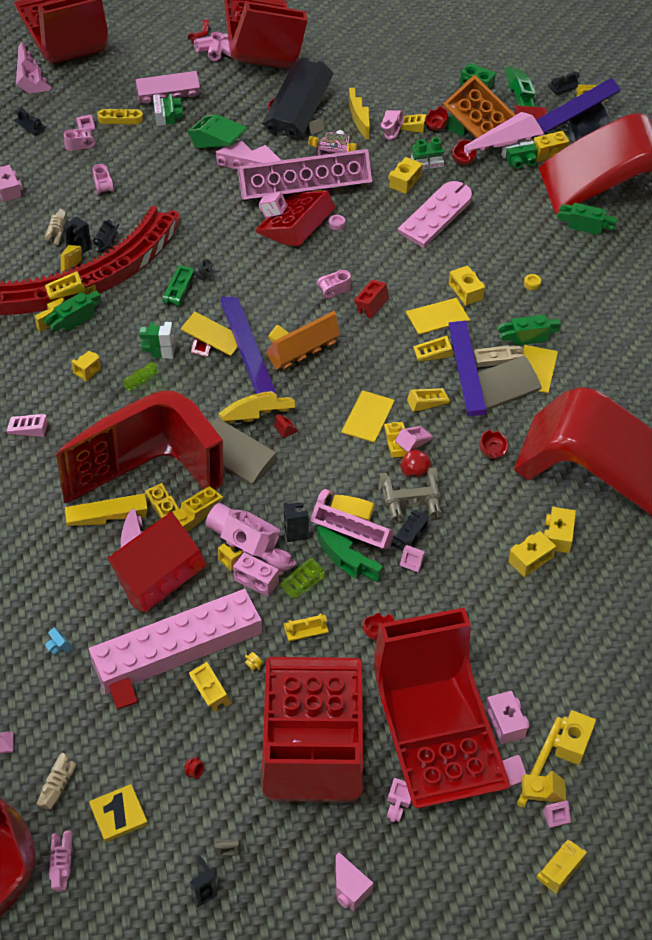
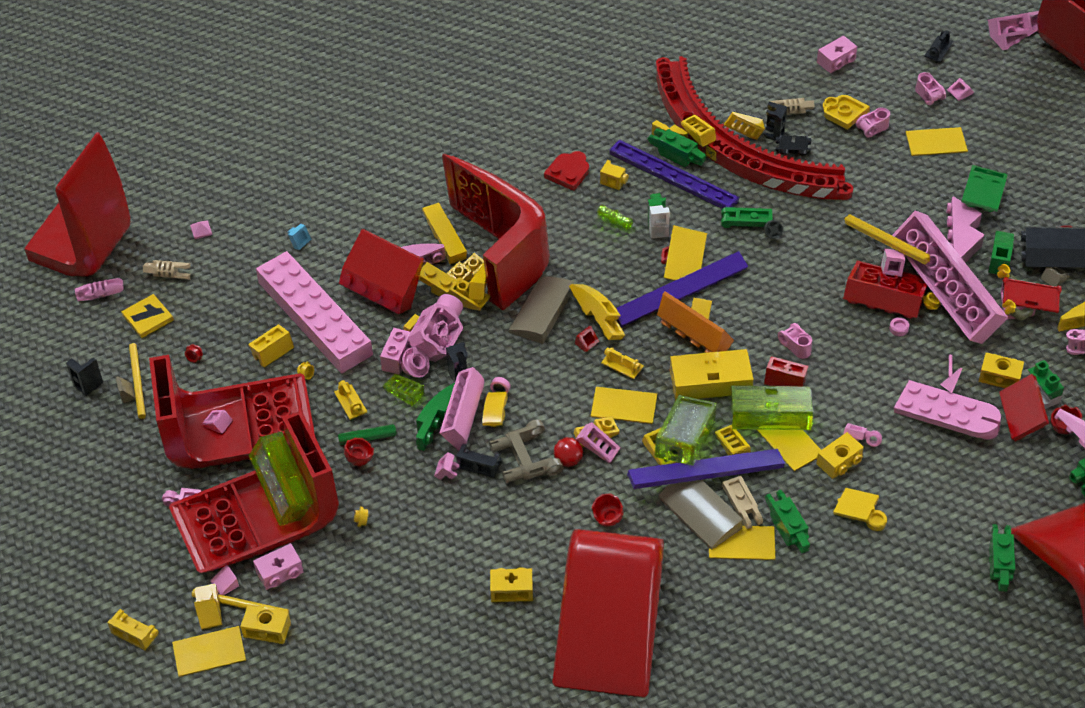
camera: 80 degrees right, 0 degrees up
(37, 428) = (530, 159): bright pink slope -> none
(60, 399) = (568, 170): none -> red plate
(76, 196) = (844, 110): none -> yellow plate
(100, 326) = (673, 175): none -> dark purple tile
(110, 116) = (976, 101): yellow beam -> none
(122, 693) = (257, 291): red slope -> none
(137, 153) = (936, 141): none -> yellow window
(167, 109) = (1010, 144): green hips -> none
(177, 84) = (1045, 135): bright pink brick -> none
(180, 476) = (478, 284): none -> yellow slope
(212, 833) = (137, 381): none -> yellow axle
(247, 200) = (887, 239): none -> yellow axle
(284, 142) = (1001, 251): none -> green slope
(323, 405) = (622, 363): none -> yellow hinge
(340, 135) = (1020, 292): none -> red door
(351, 884) = (99, 476): bright pink slope -> none
(353, 620) = (368, 434): none -> green axle
(358, 345) = (710, 373): none -> yellow brick
(409, 202) = (950, 382): none -> bright pink piece
(409, 313) = (771, 407): none -> clear neon green brick
(416, 686) = (280, 478): none -> clear neon green brick
(425, 368) = (685, 430): none -> clear neon green brick
(443, 270) = (862, 433): none -> bright pink plate
(448, 167) = (1024, 407): none -> red tile
(516, 289) = (856, 505): none -> yellow piece
(531, 553) = (473, 563): yellow brick -> none
(557, 814) = (186, 621): bright pink slope -> none
(593, 799) = (208, 651): none -> yellow window

